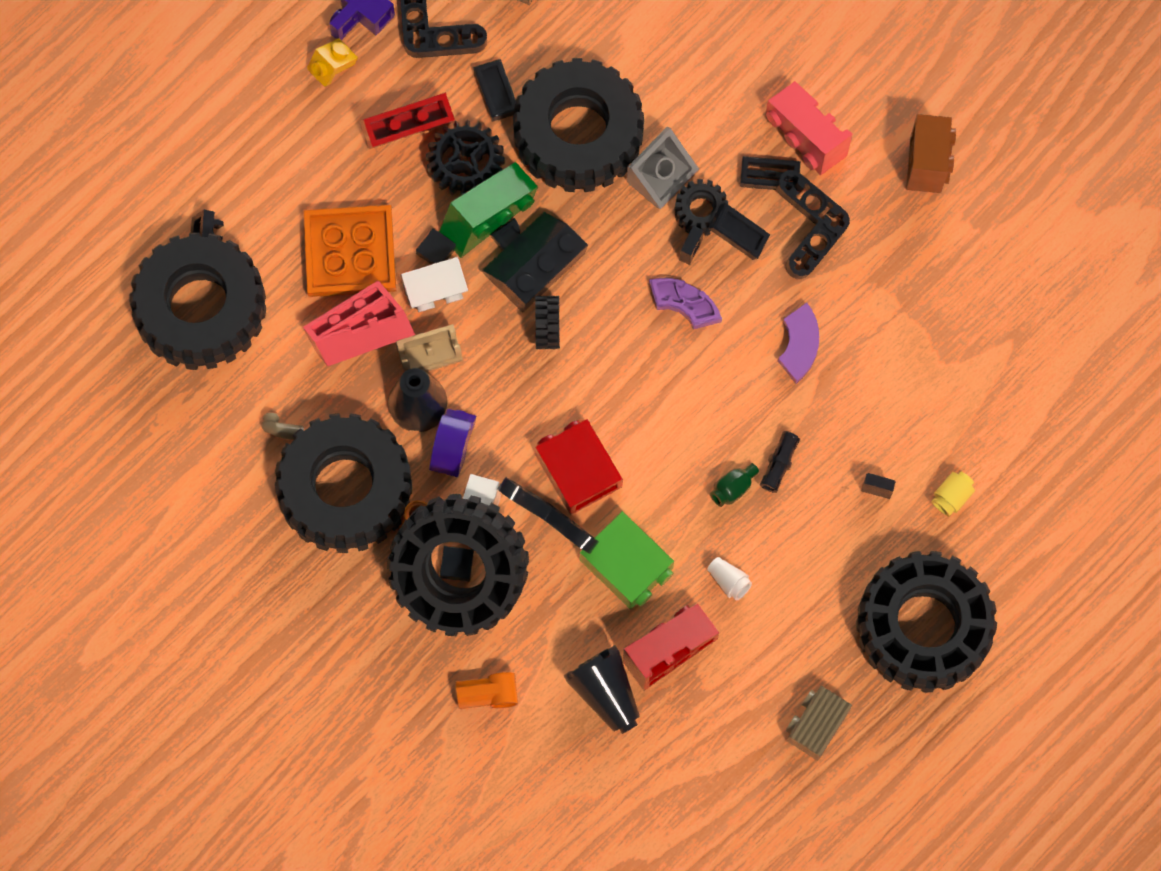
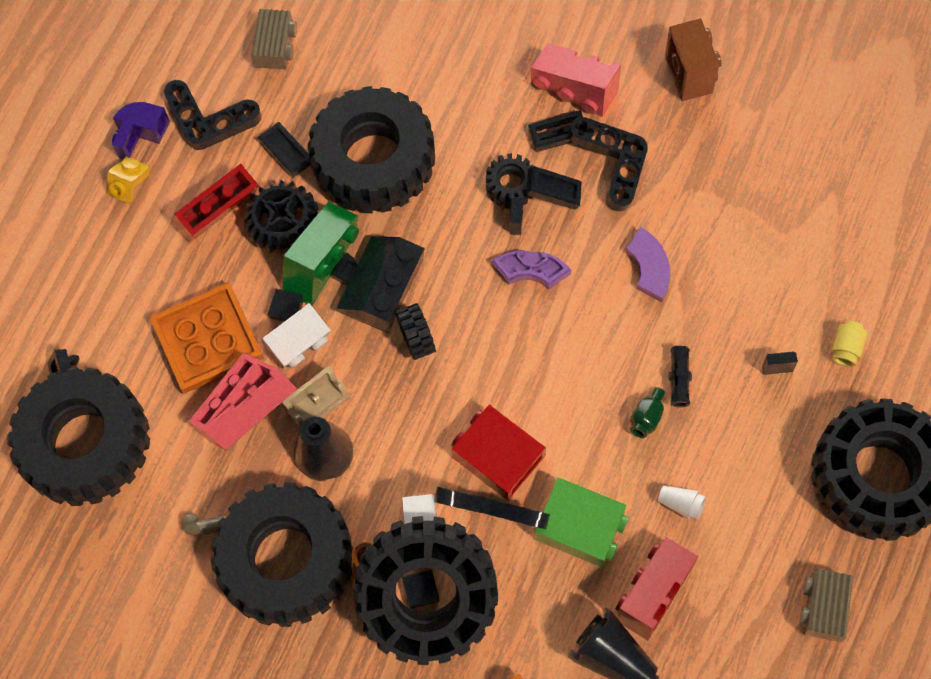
camera: 15 degrees left, 5 degrees down
(452, 442) = (371, 476): dark purple brick -> none
(661, 169) = (461, 160): light grey slope -> none

